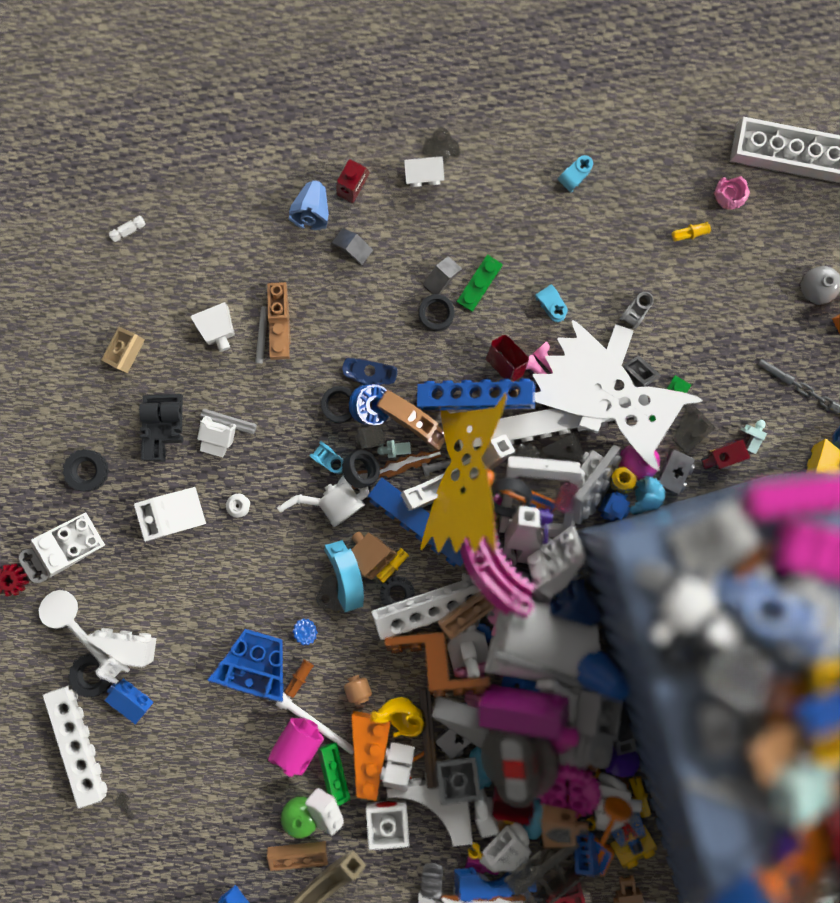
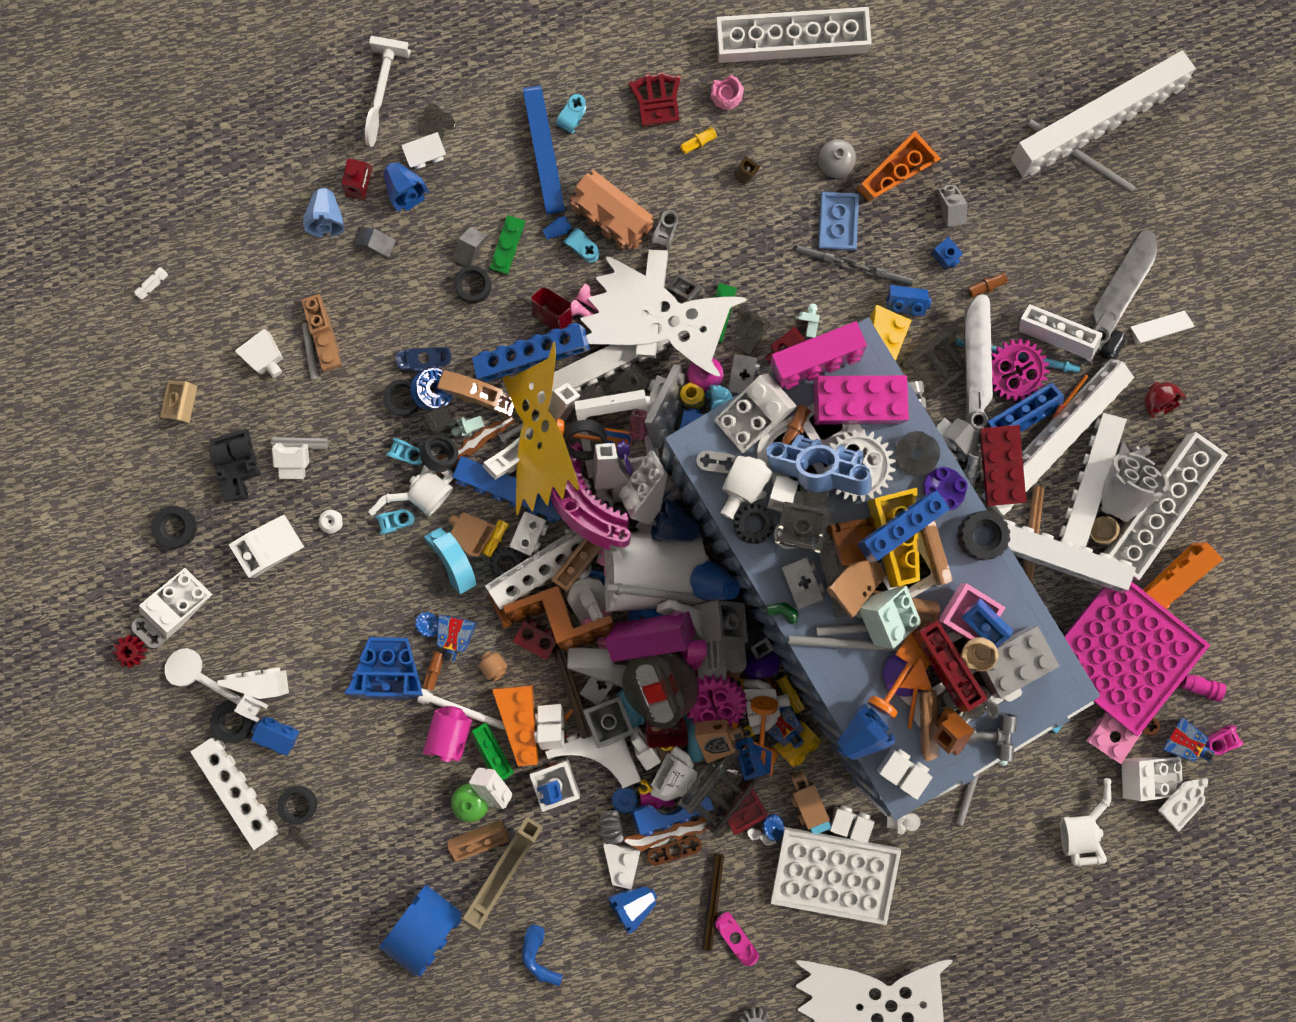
camera: 15 degrees left, 0 degrees up
(124, 787) = (286, 816): none -> black tyre
(297, 522) = (391, 521): none -> medium azure piece
(328, 649) = (454, 635): none -> torso
(381, 649) = (503, 618): none -> dark orange axle
(383, 834) = (551, 792): none -> blue tile
(395, 198) = (404, 187): none -> blue cone
(402, 679) = (534, 644): none -> dark red brick
(403, 716) = (542, 677): yellow piece -> none
(416, 64) = (389, 49): none -> white piece
(427, 570) = (529, 533): none -> white brick
(451, 856) = (624, 800): none -> blue piece
(532, 280) = (557, 228): none -> blue cone
(540, 200) = (543, 149): none -> blue beam
(590, 277) = (611, 210): none -> nougat brick
(661, 192) = (658, 110): none -> dark red plate
(694, 755) = (785, 610): none -> dark green arm
(727, 275) = (746, 170): none -> dark brown plate
(806, 346) = (838, 221): none -> medium blue tile

